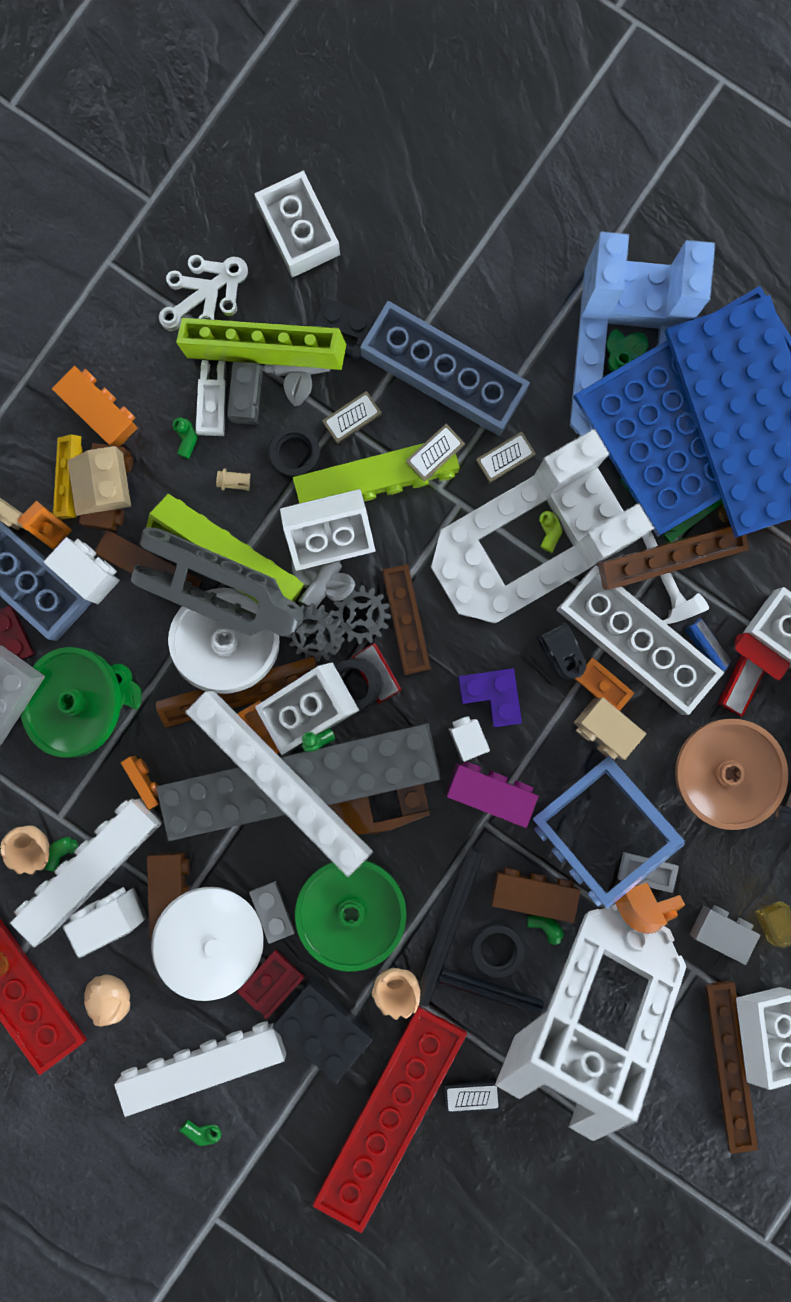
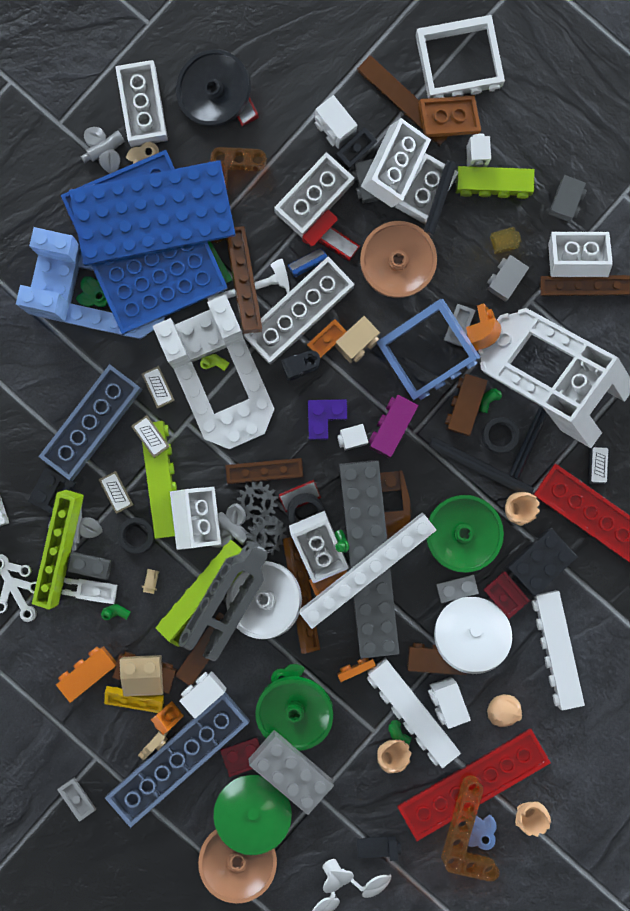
camera: 90 degrees left, 0 degrees up
(201, 1135) = (604, 655): green arm -> none

